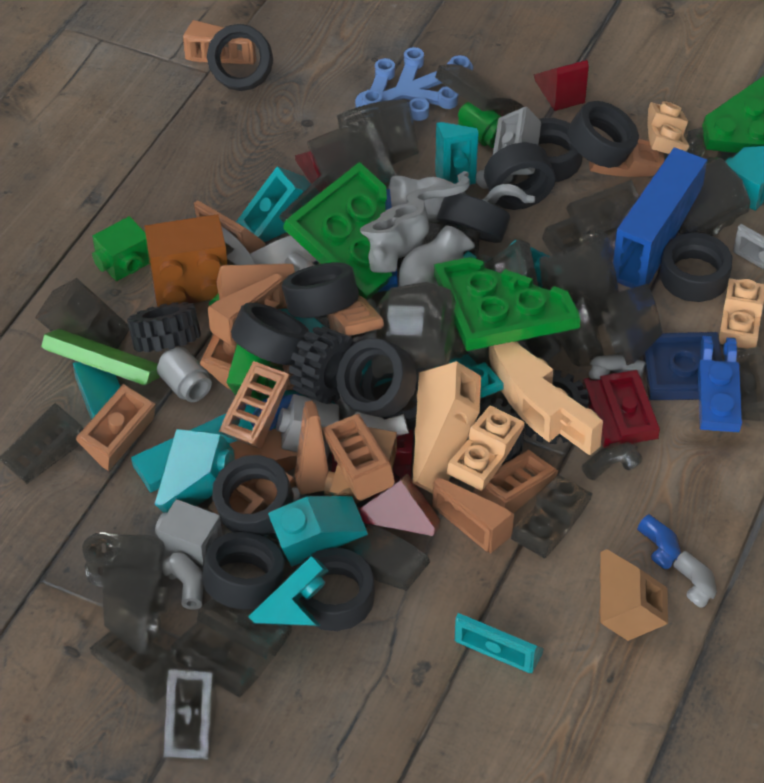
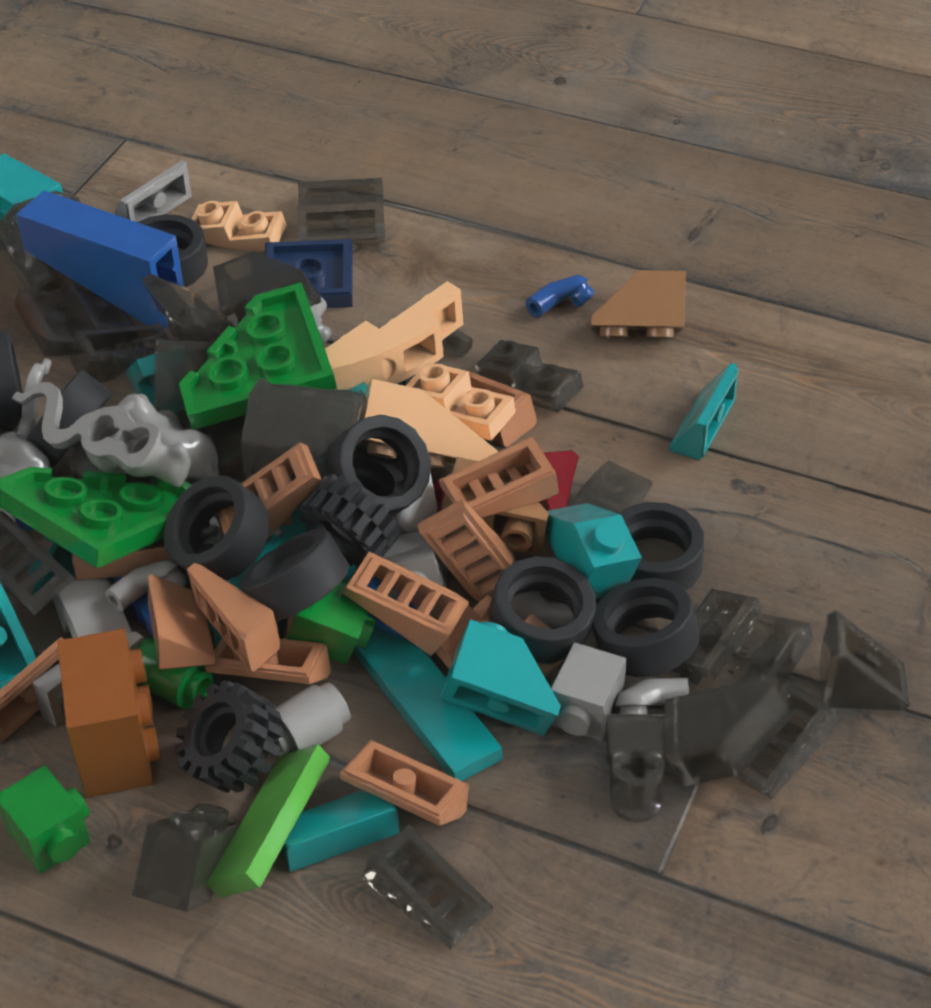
camera: 90 degrees left, 5 degrees down
(283, 604) = (707, 564): teal slope -> none
(475, 516) = (548, 419): nougat slope -> none
(623, 407) = (369, 305): dark red plate -> none
(700, 576) = (602, 269): light grey arm -> none
(719, 388) = (351, 236): blue hinge -> none

